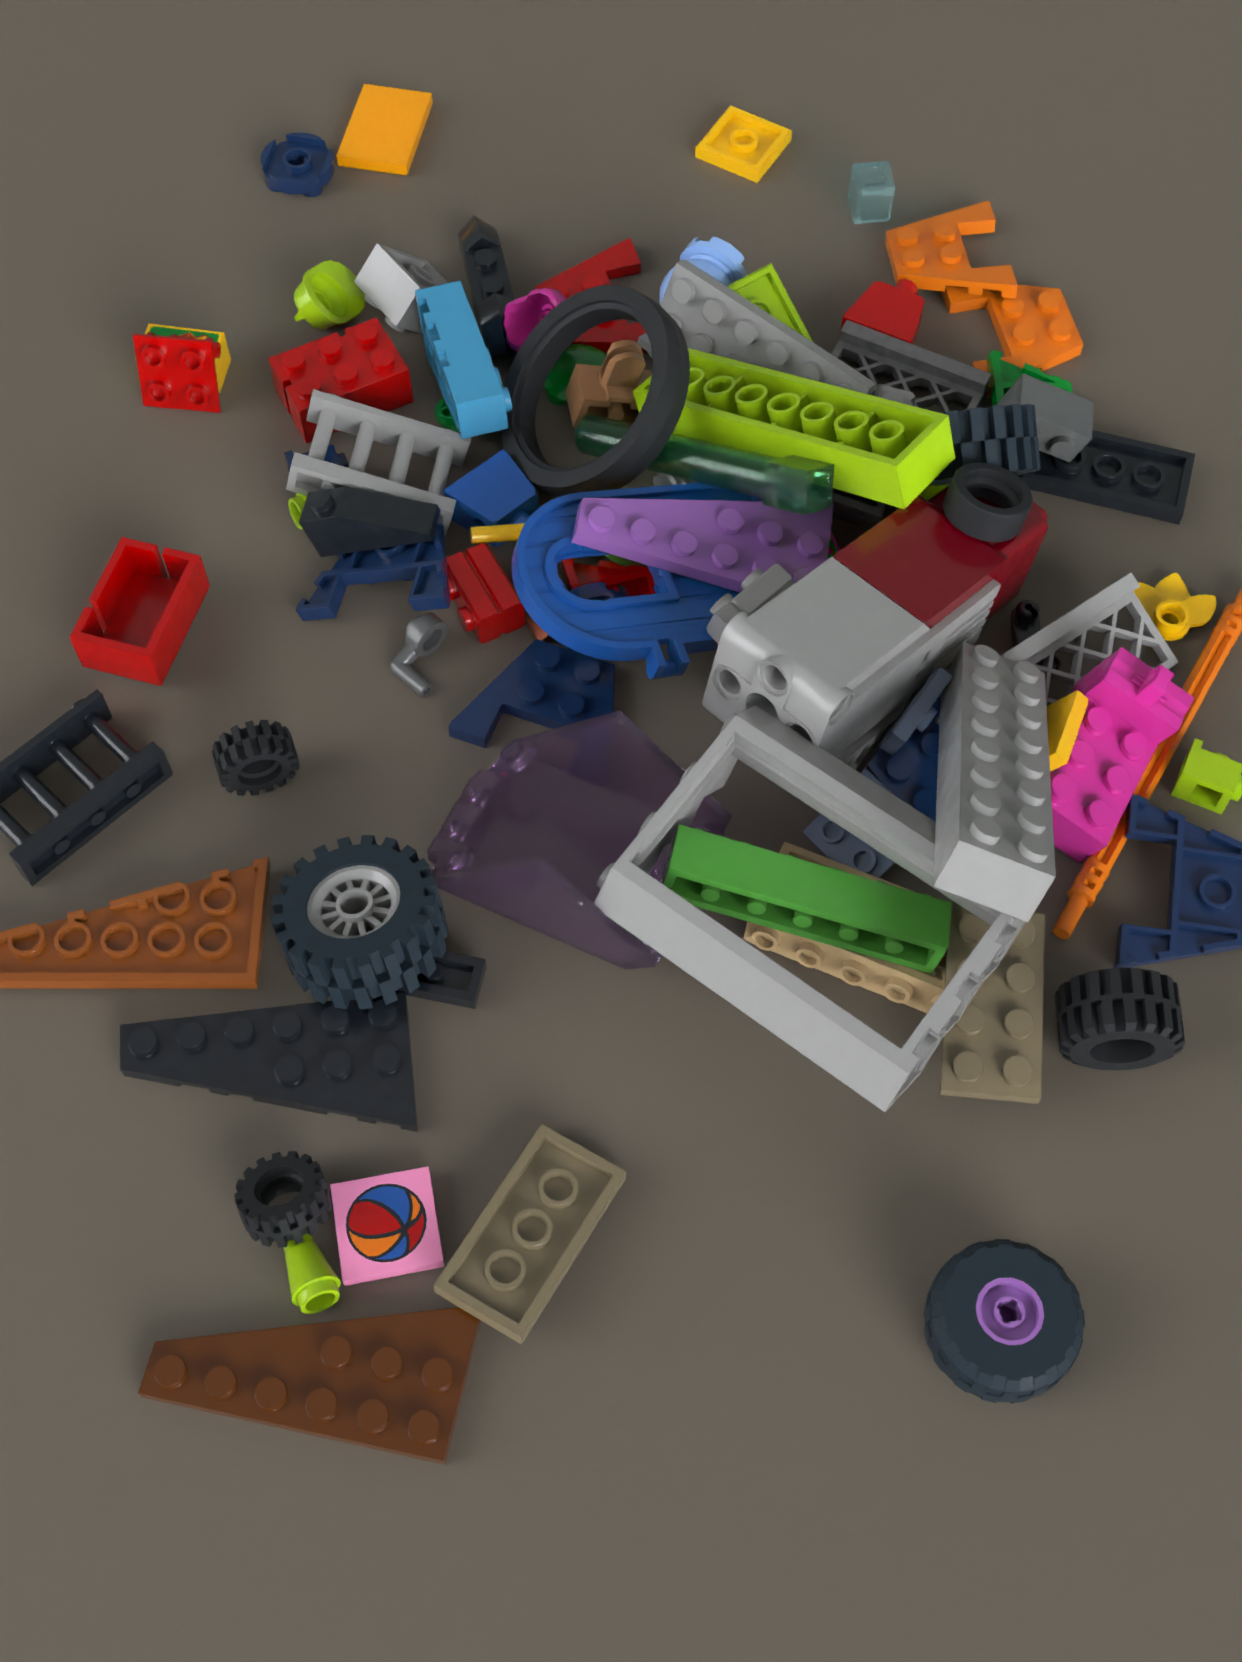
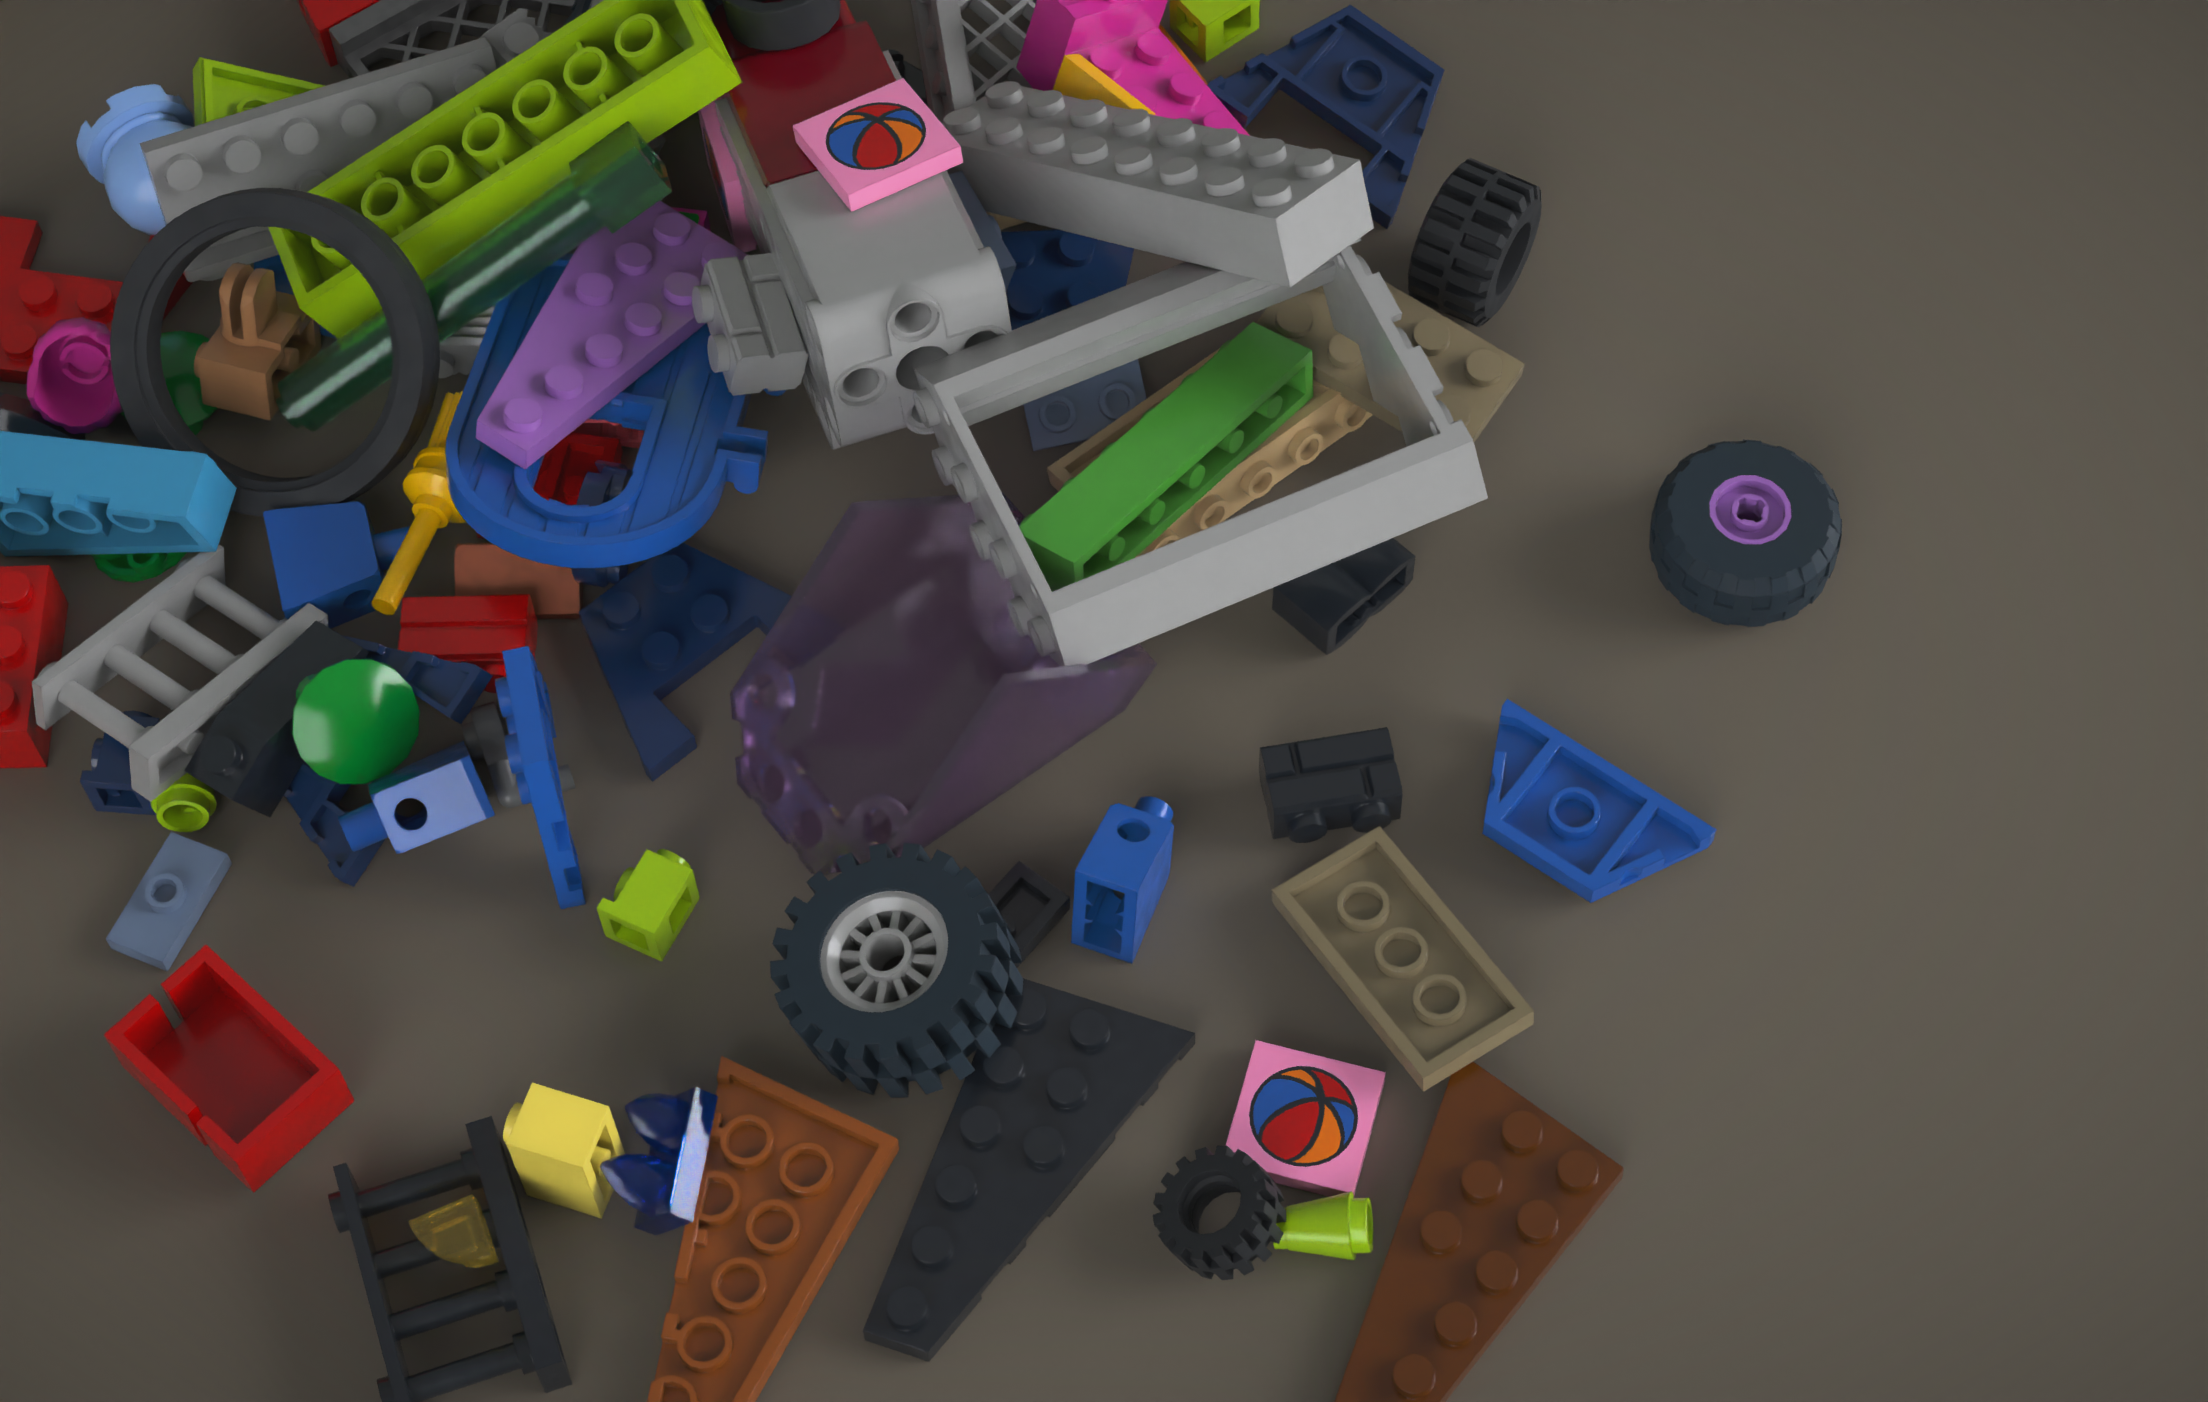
camera: 60 degrees left, 0 degrees up
(80, 771) = (457, 1233): none -> clear yellow tile
(157, 800) = (559, 1148): none -> light yellow brick
(164, 863) = (669, 1179): none -> clear blue tile
(245, 537) = (169, 901): none -> sand blue plate
(255, 757) = (568, 1008): black tyre -> none
(356, 619) = (449, 795): none -> torso
(356, 771) = (650, 903): none -> lime brick
(380, 554) = (355, 721): none -> green dish
(395, 648) = (532, 758): none -> blue wing
(503, 1024) = (1128, 856): none -> blue torso
(642, 1125) = (1330, 784): none -> black brick
(711, 1304) = (1579, 812): none -> blue wing
(792, 1073) = (1342, 596): none -> black brick
(896, 597) = (877, 144): none -> tile

